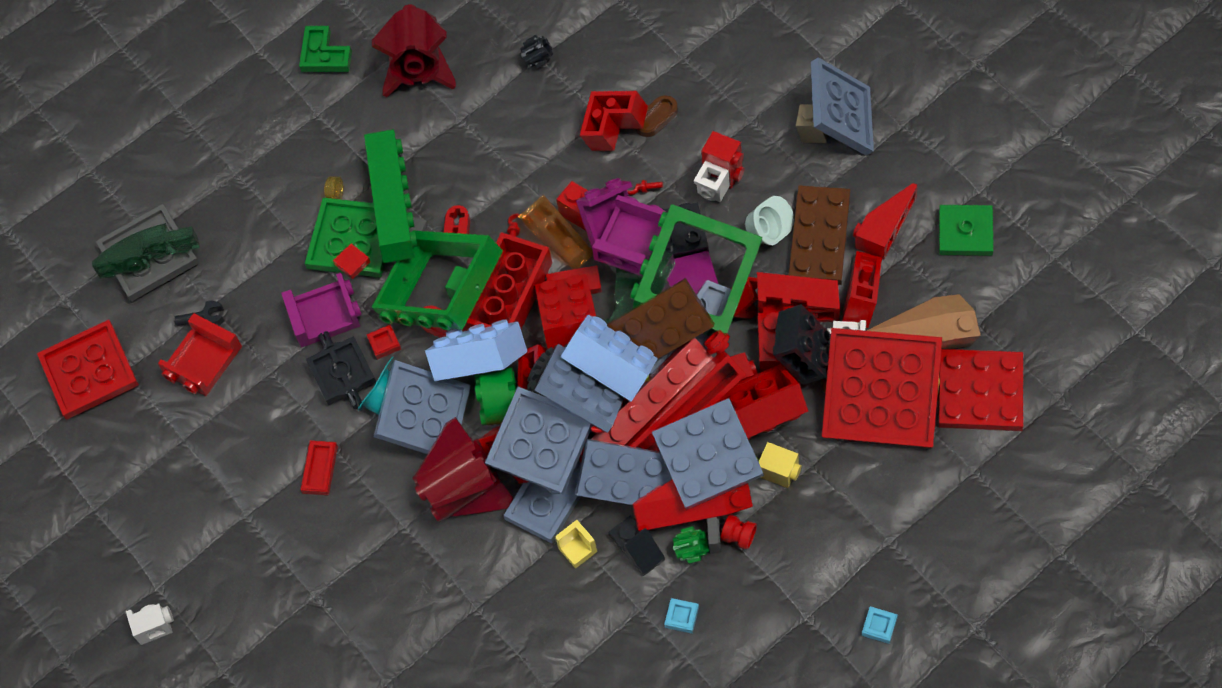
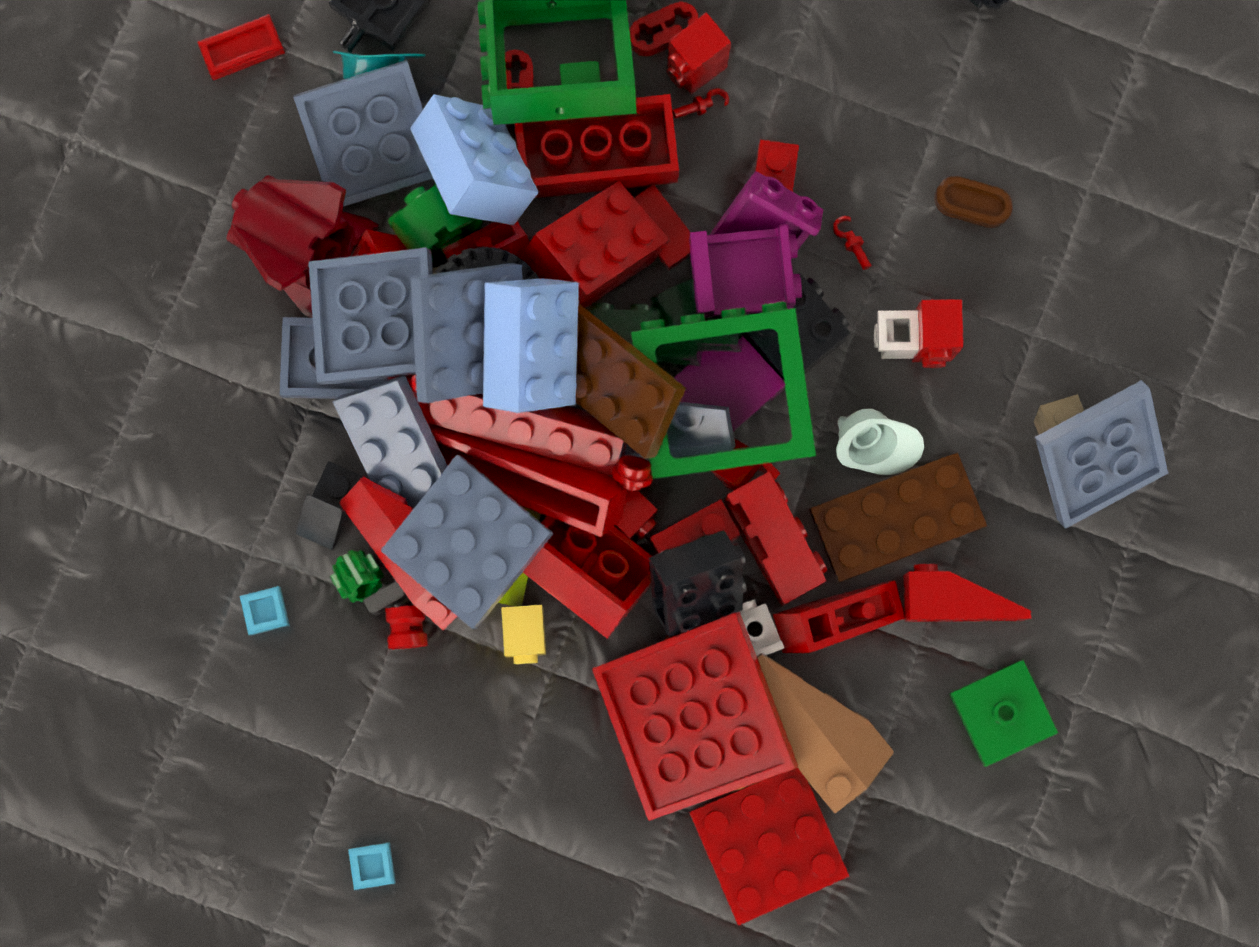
camera: 50 degrees right, 20 degrees up
(383, 342) = (454, 27): red tile -> none
(485, 209) = (697, 54): none -> red brick
(556, 232) = (719, 164): clear orange slope -> none
(576, 544) = (290, 430): light yellow panel -> none
(609, 113) = (928, 136): red brick -> none

